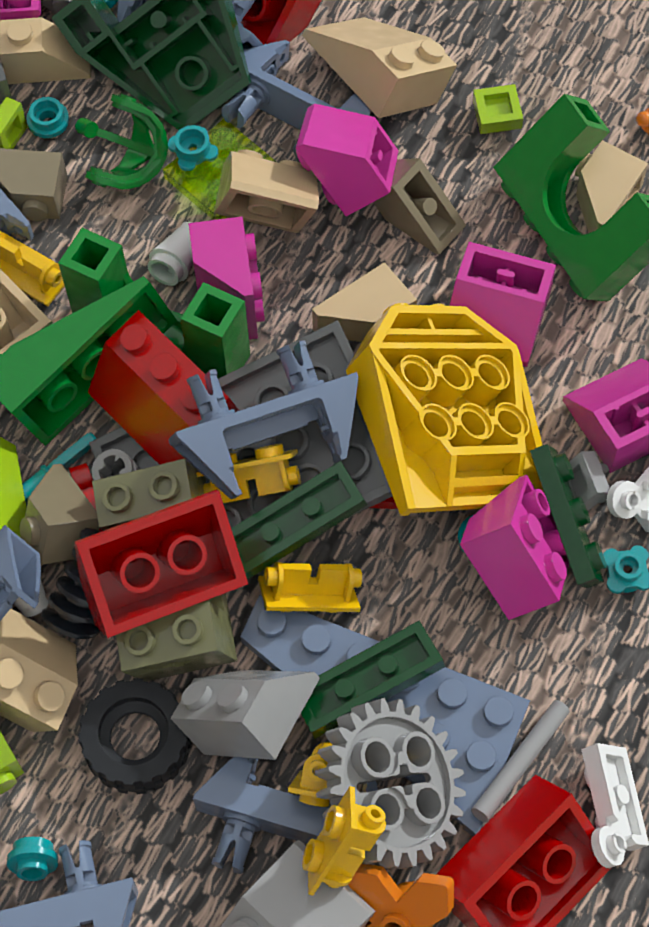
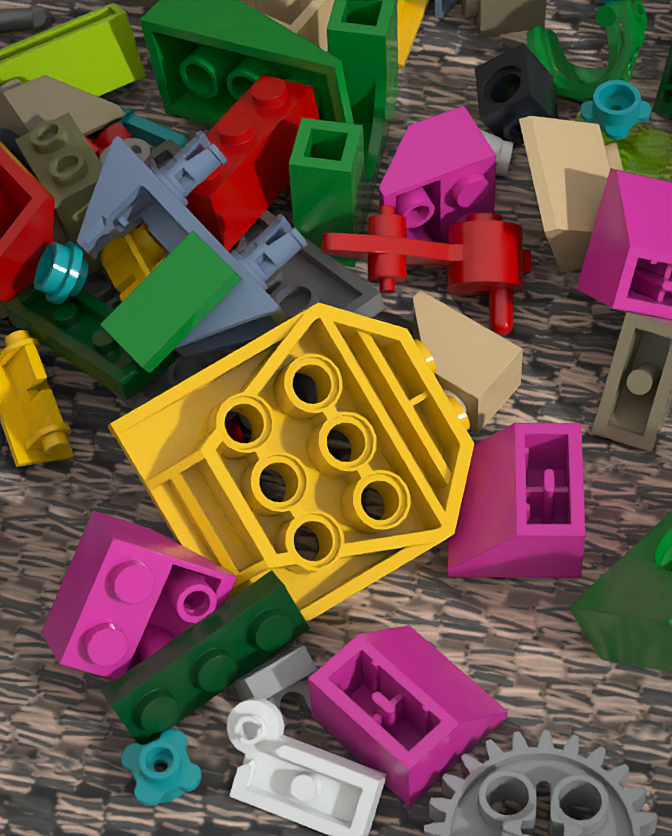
camera: 75 degrees right, 10 degrees down
(132, 200) = (513, 89): none -> black brick
(243, 530) = (61, 271): none -> teal plate
(292, 269) = (479, 258): none -> red piece
(326, 440) = (171, 302): none -> green tile

